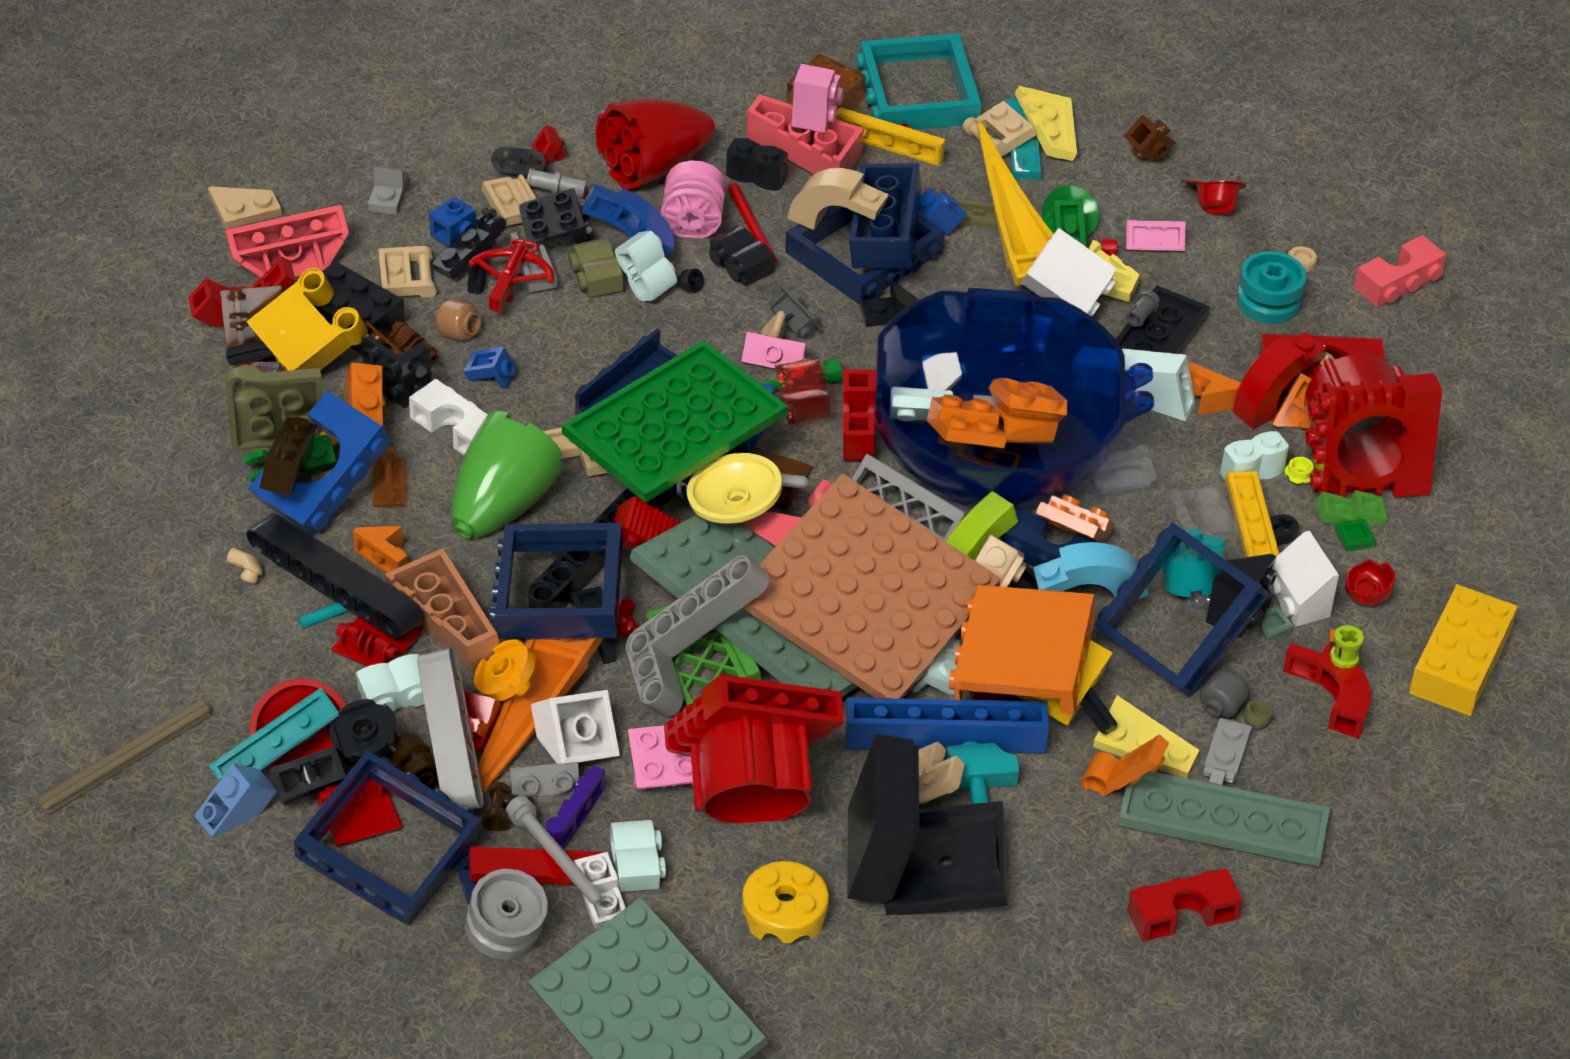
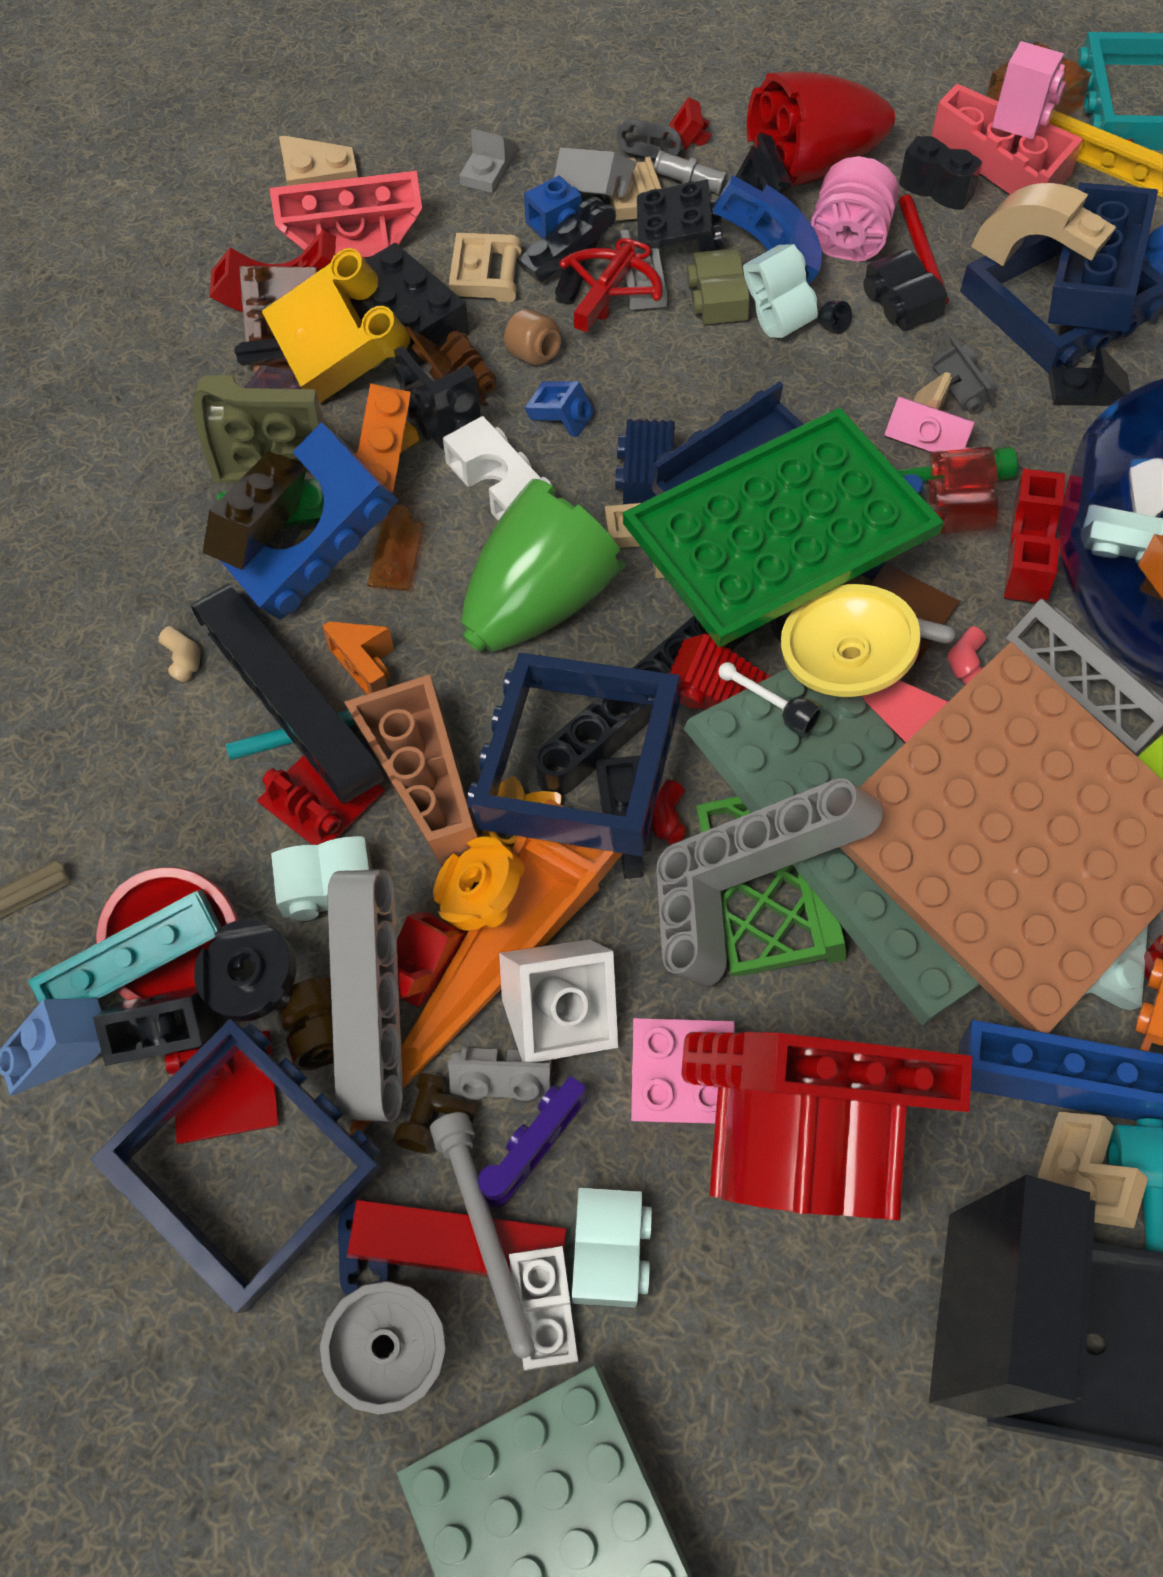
camera: 15 degrees right, 15 degrees up
(481, 190) = (595, 170): none -> light grey hinge
(560, 391) = (641, 449): none -> dark blue brick
(616, 173) = (764, 166): none -> black plate
(707, 537) = (798, 714): none -> hinge
(785, 918) = (803, 1418): yellow plate -> none

